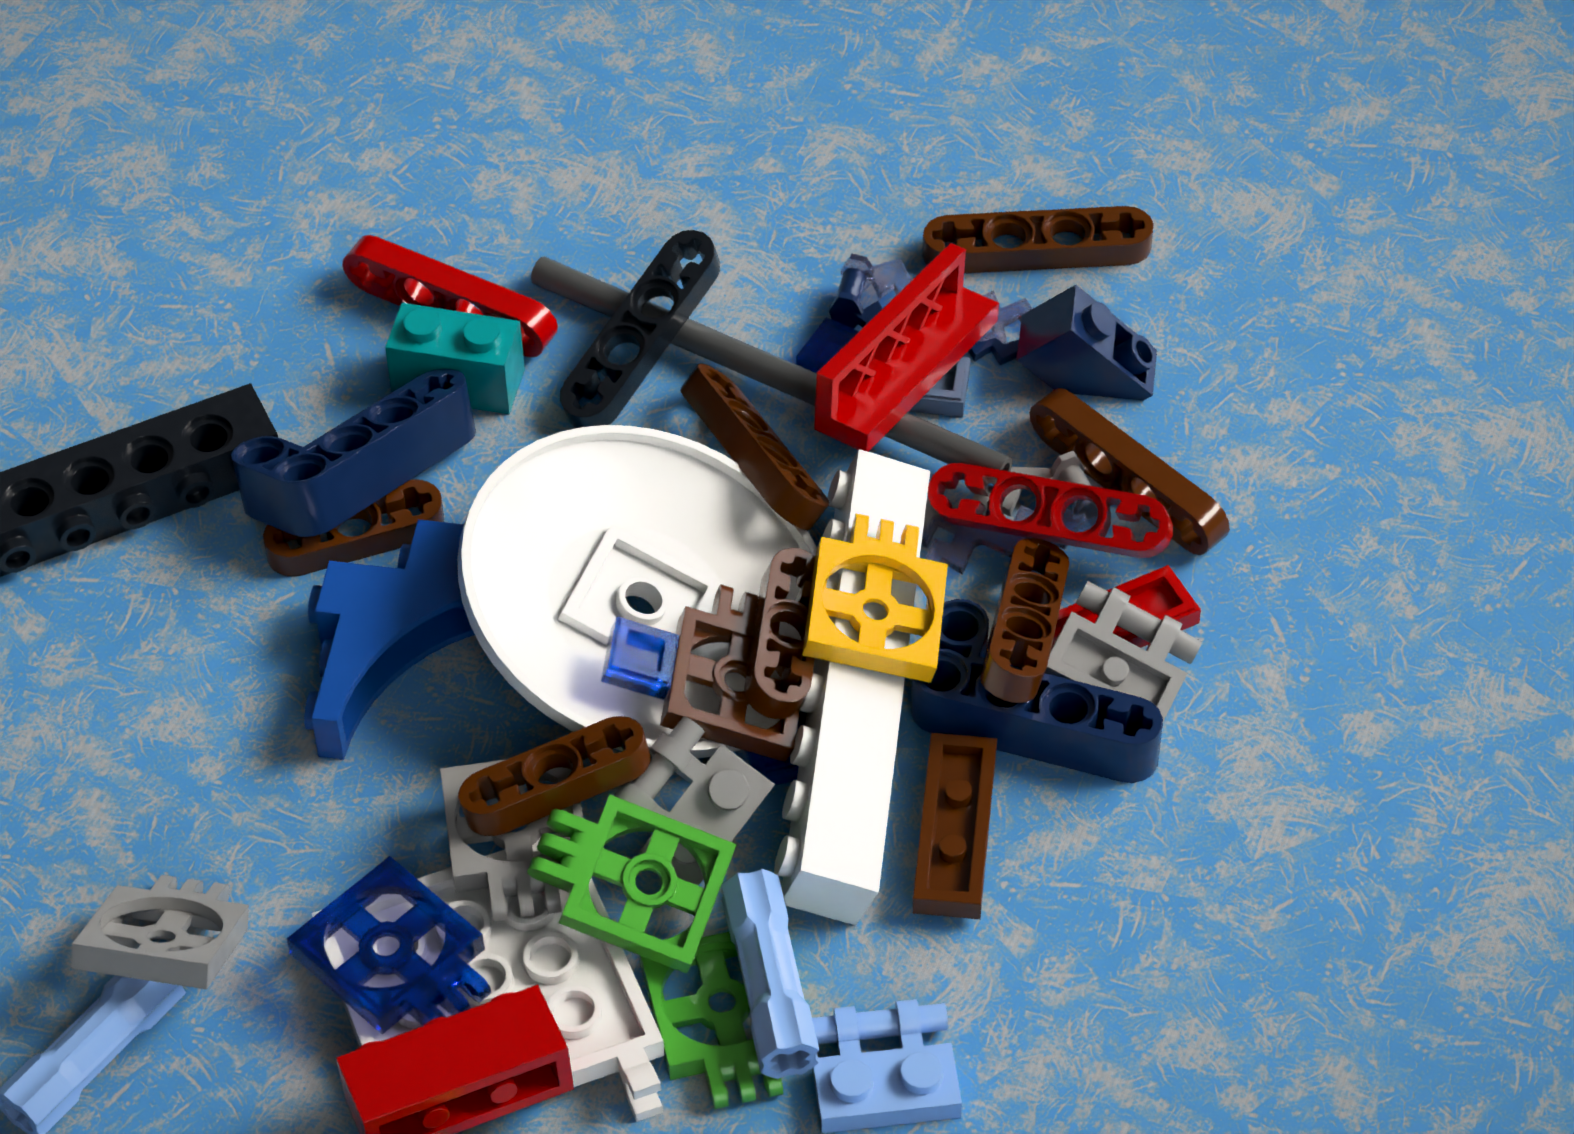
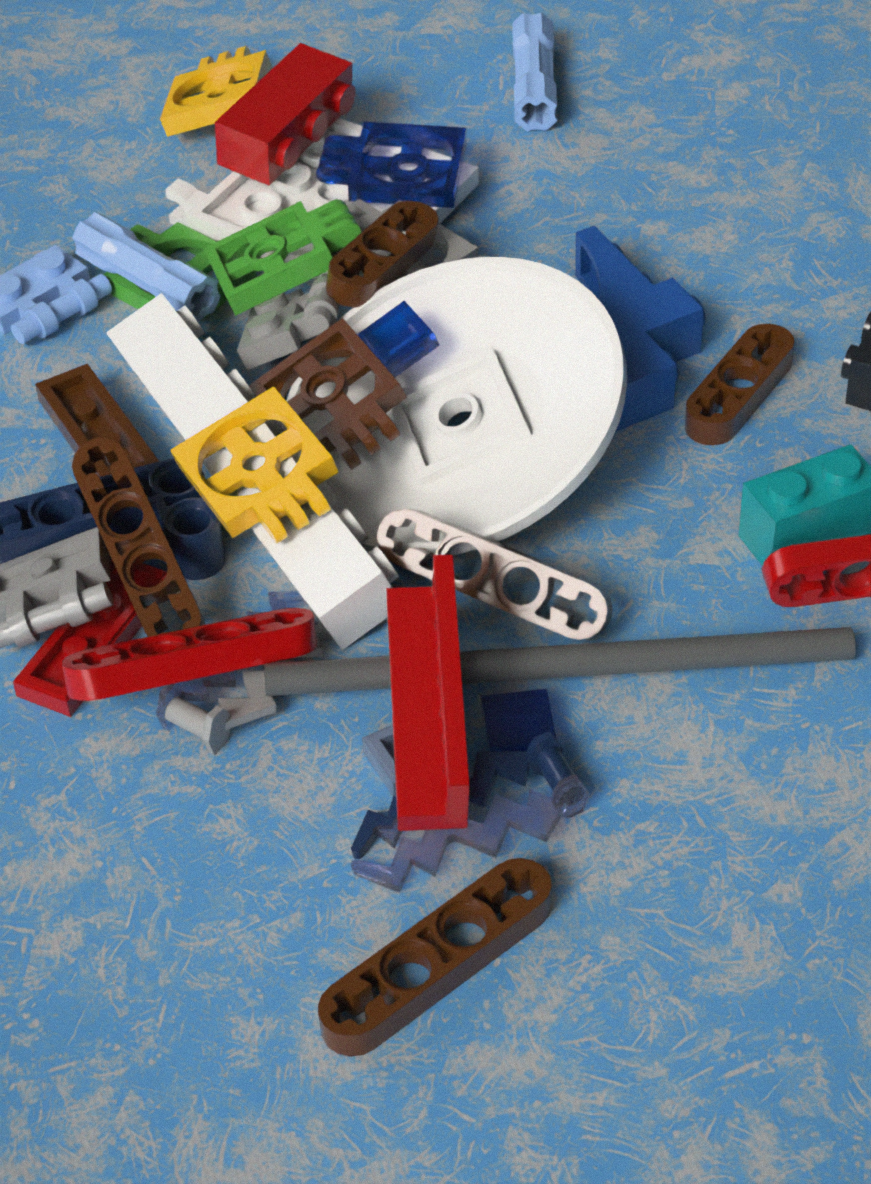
camera: 145 degrees right, 5 degrees down
(187, 959) = (557, 139): light grey piece -> none
(357, 461) = (774, 353): dark blue beam -> none
(648, 333) = (685, 597): black beam -> none
(768, 650) = (335, 431): reddish brown beam -> none
(1085, 348) = (282, 839): dark blue slope -> none
(1127, 466) = (234, 760): reddish brown beam -> none

